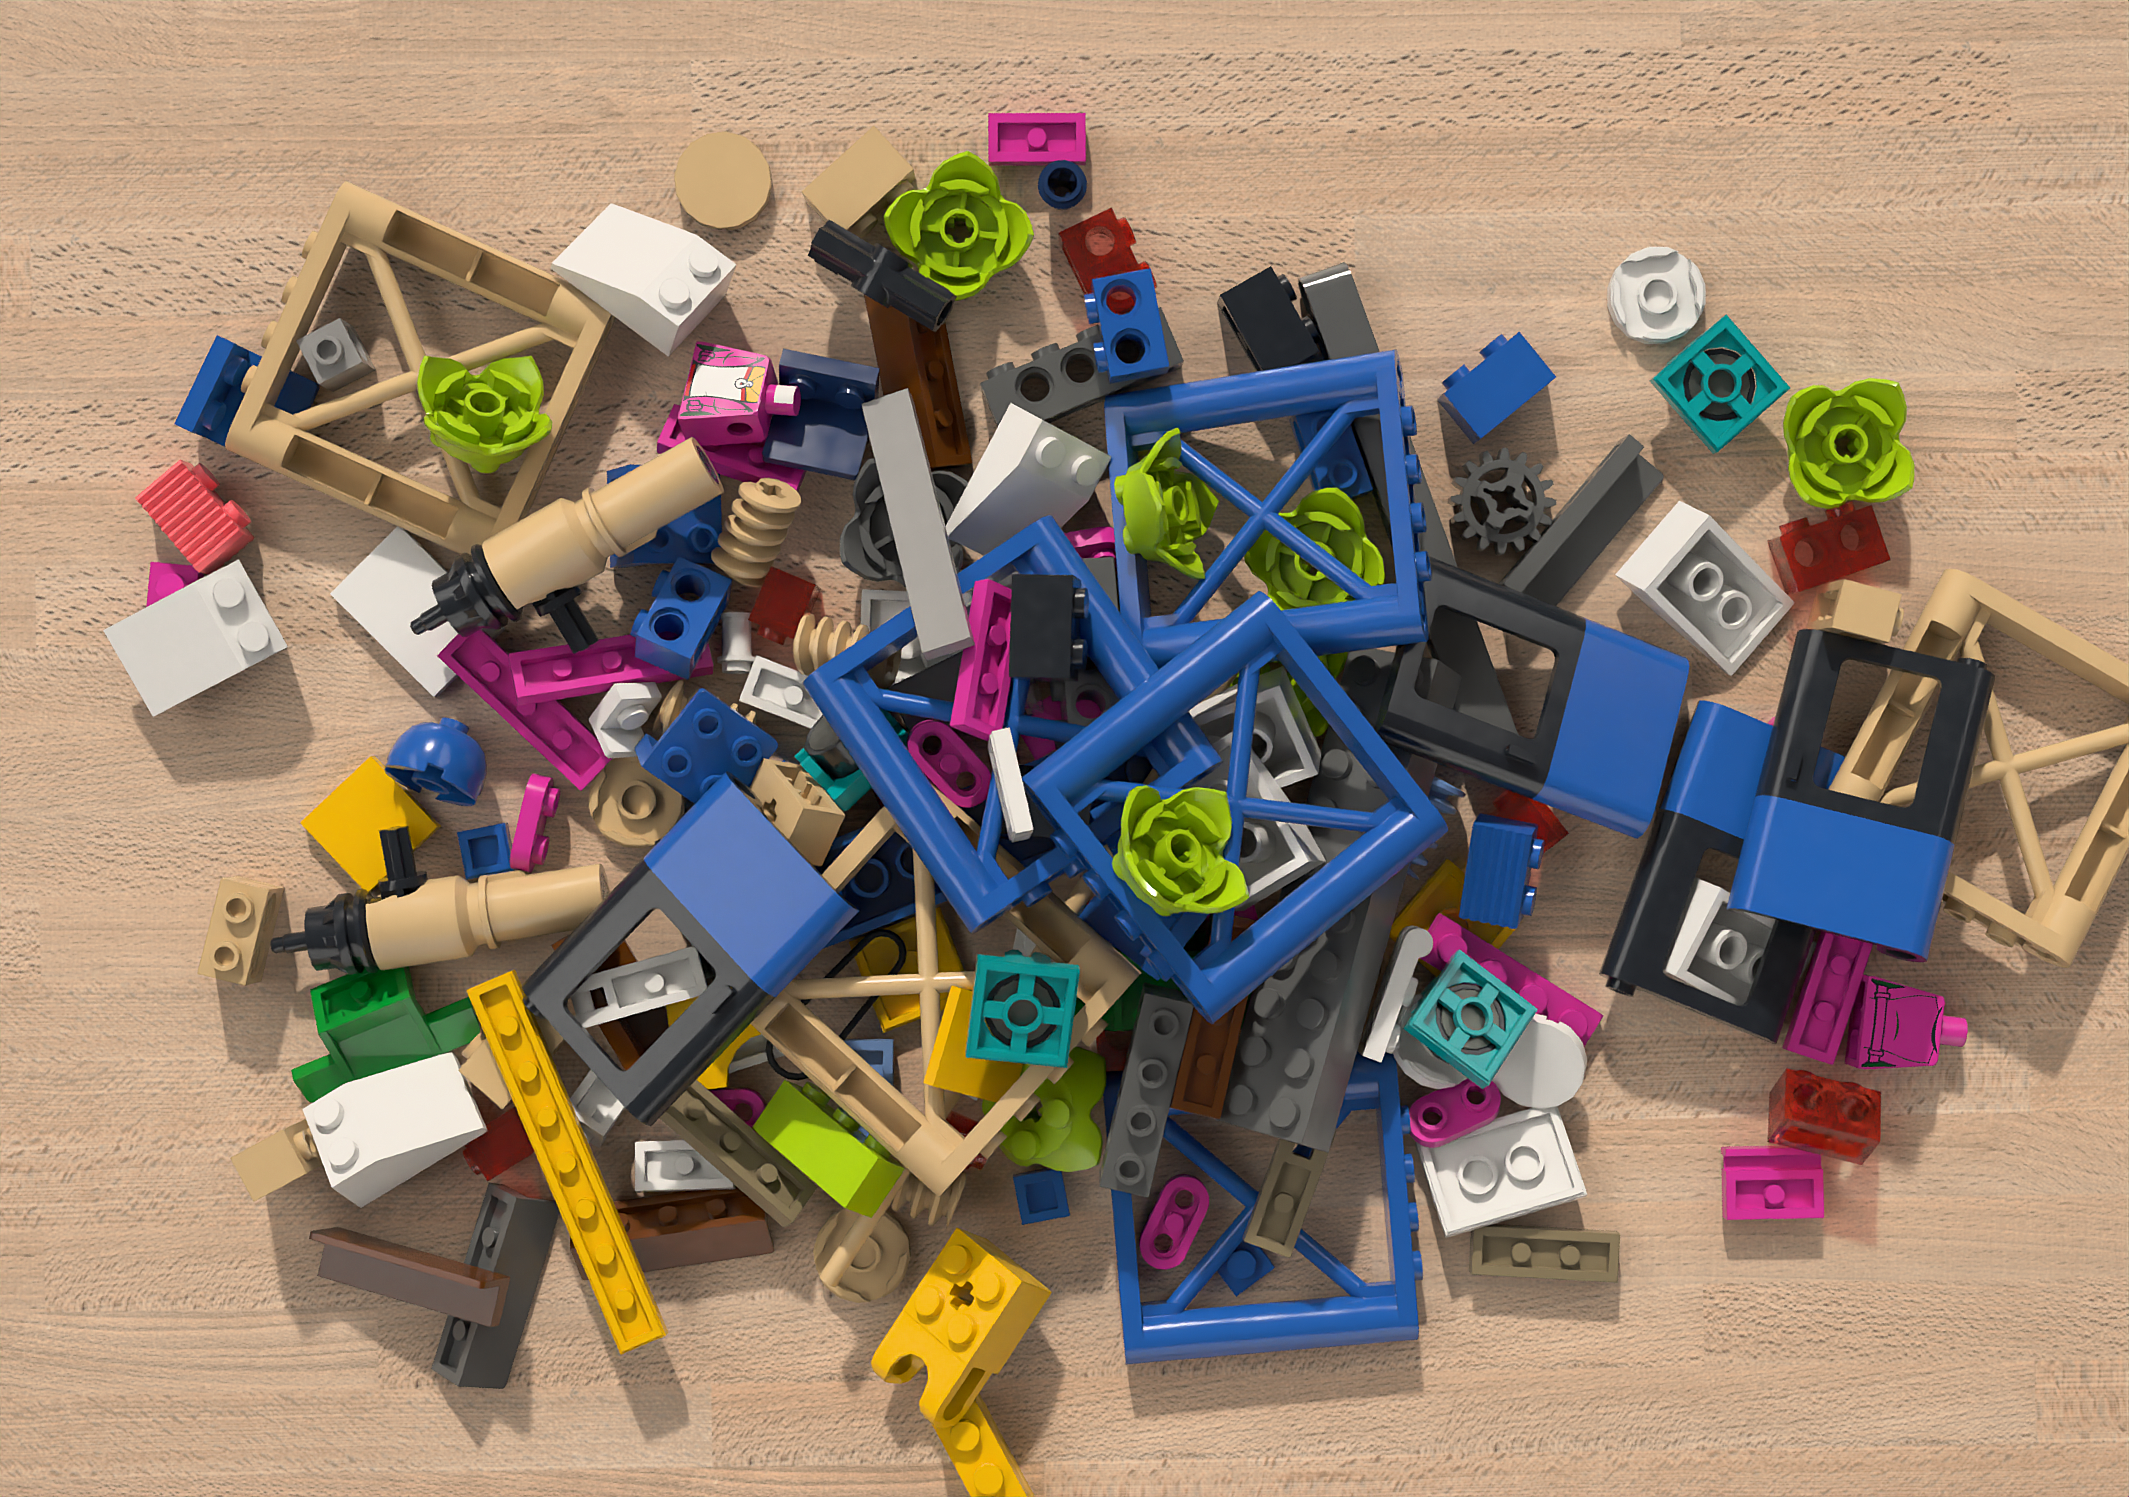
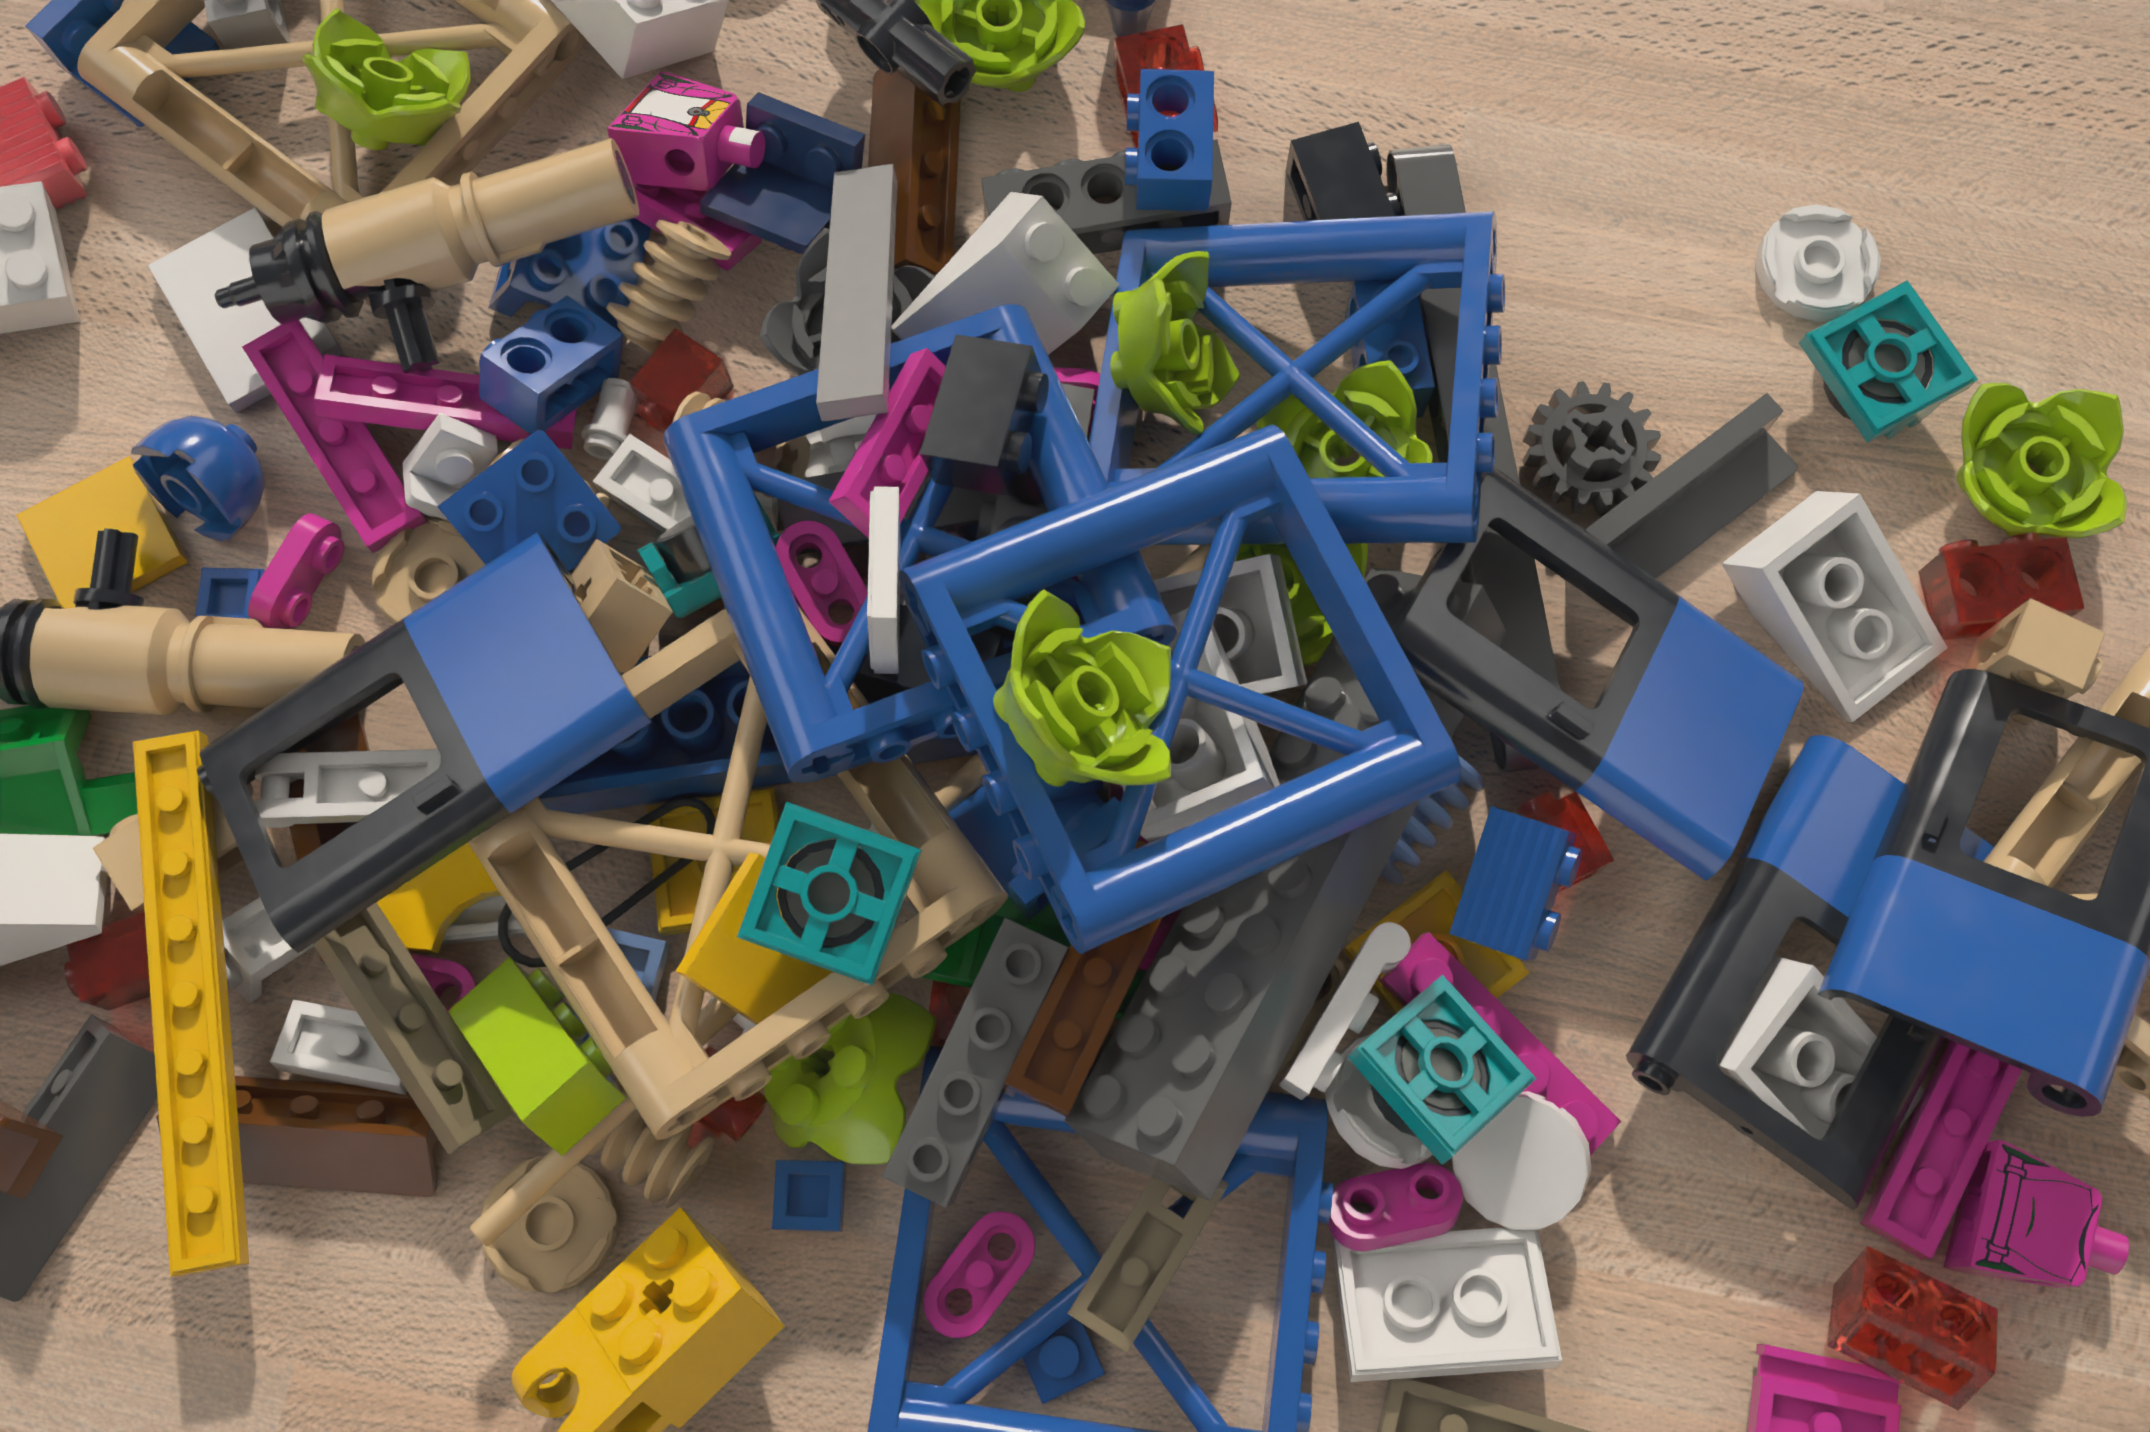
camera: 10 degrees right, 15 degrees down
(1495, 387) = (1605, 316): blue brick -> none

